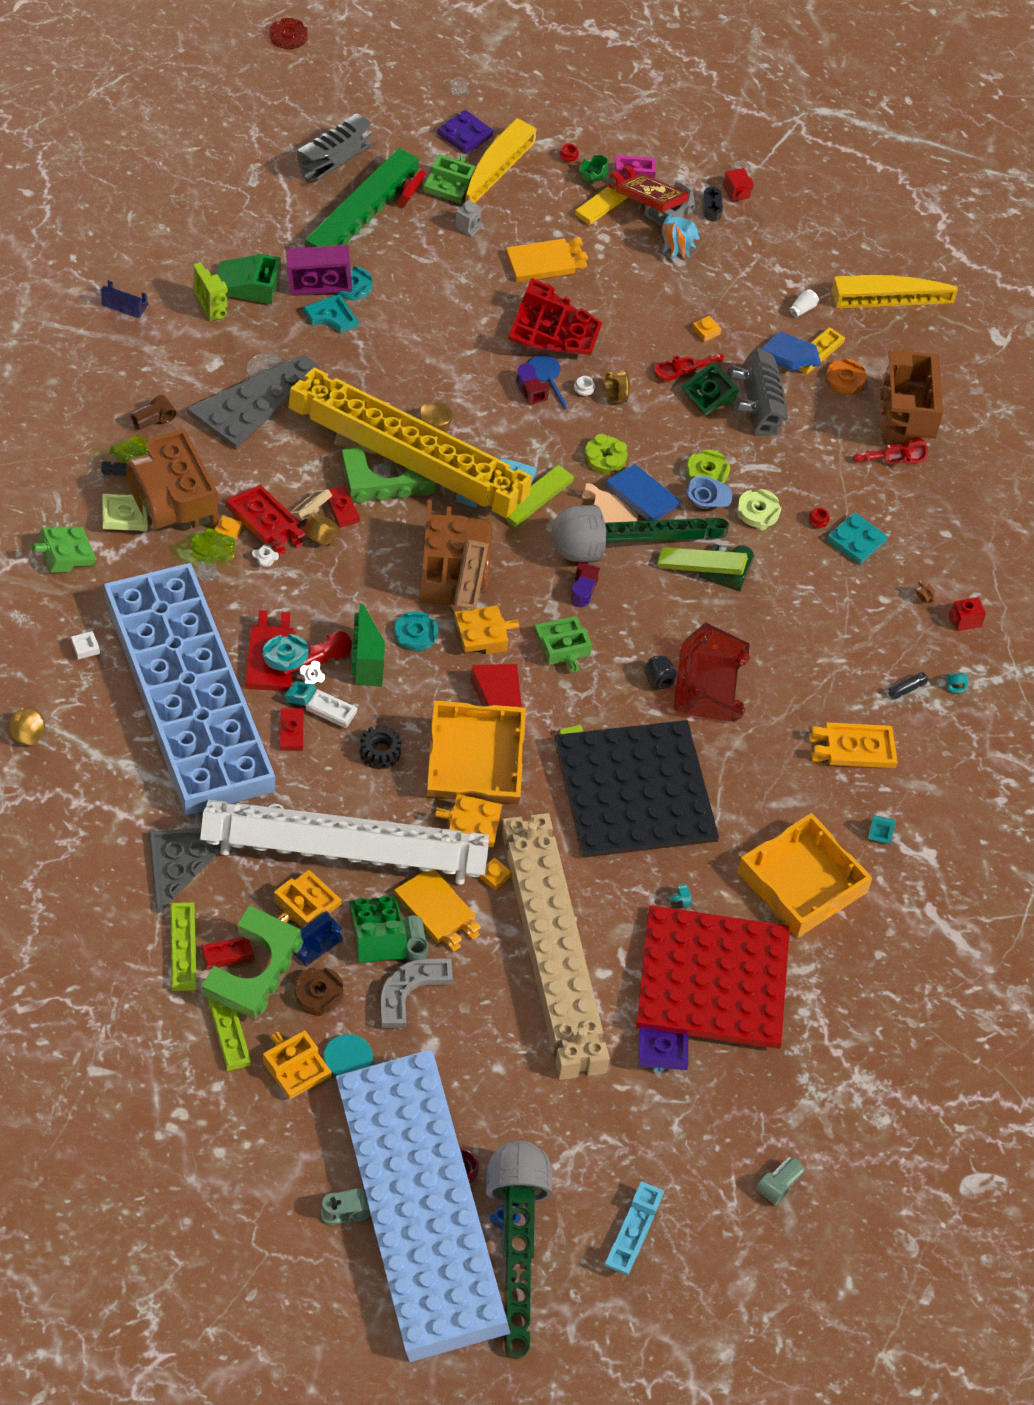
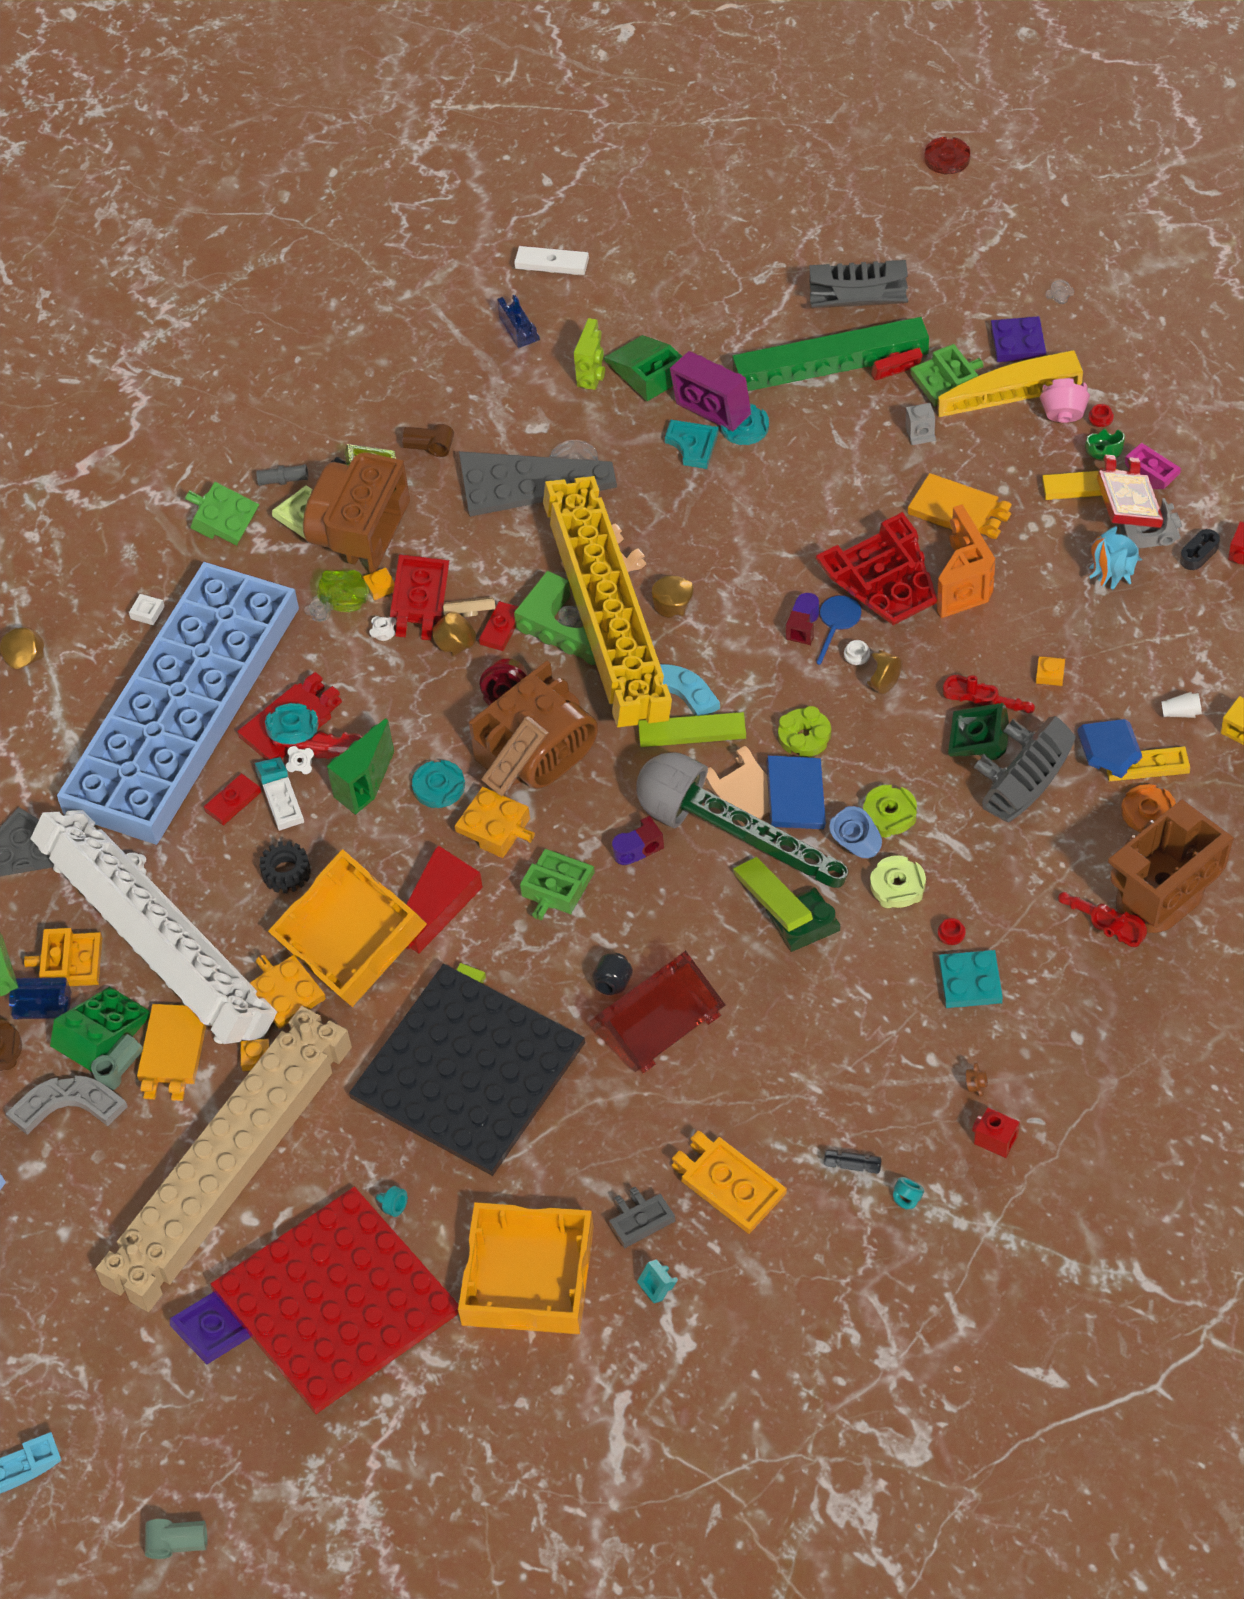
camera: 55 degrees right, 0 degrees up
(75, 497) = (282, 475): none -> dark grey pin
(100, 244) = (551, 260): none -> white tile
(397, 538) = (500, 678): none -> dark red cone
(544, 154) = (1064, 400): none -> bright pink cone
(598, 281) = (970, 571): none -> orange bracket
(834, 800) = (642, 1219): none -> dark grey hinge

